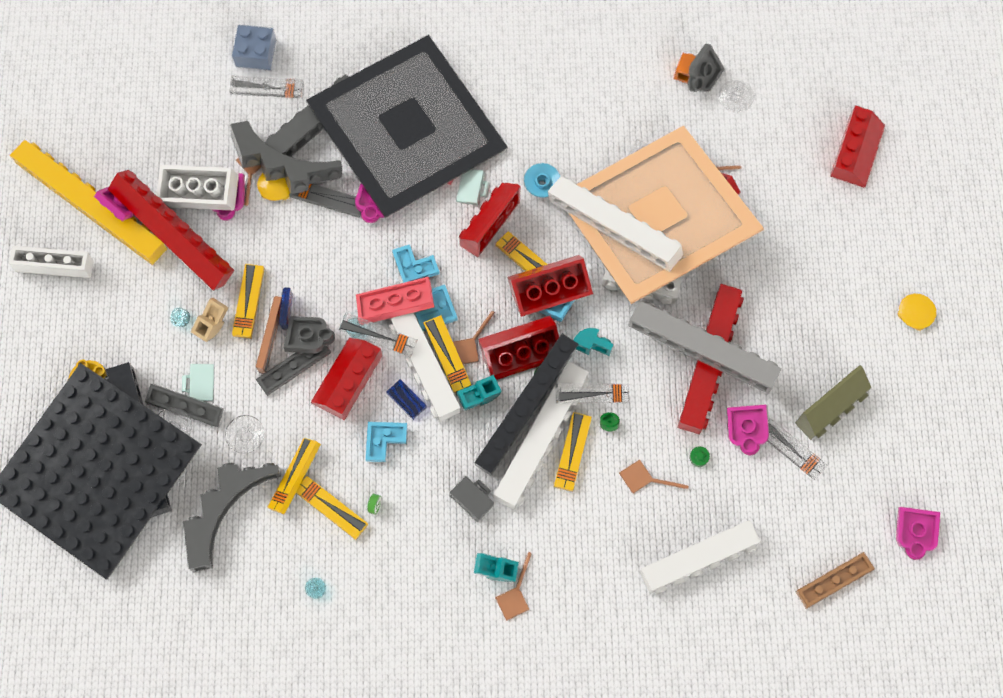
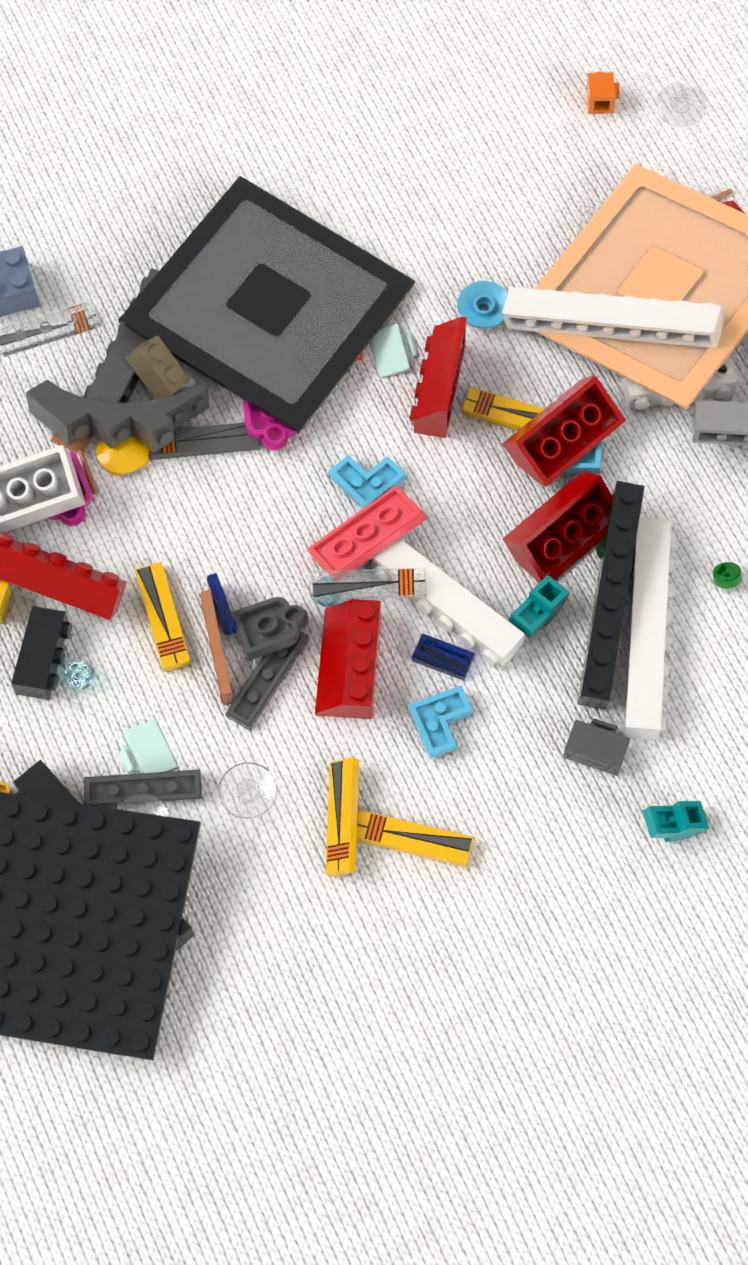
camera: 20 degrees left, 5 degrees down
(163, 294) = (41, 653): none -> black brick
(210, 321) = (125, 660): tan brick -> none
(233, 483) = (265, 863): dark grey arch -> none
(315, 588) = (444, 951): clear light blue tile -> none
(317, 140) = (157, 368): none -> dark tan brick
(374, 504) = (469, 808): bright green tile -> none
(442, 307) = (435, 529): medium azure plate -> none
(447, 354) = (469, 572): yellow tile -> none
(467, 348) = (490, 563): nougat piece -> none
(512, 602) = (715, 857): nougat piece -> none
(572, 452) = (697, 633): yellow tile -> none
(588, 340) = (657, 482): teal brick -> none
(592, 393) = (689, 545): clear tile -> none
(704, 70) = (627, 84): dark grey plate -> none

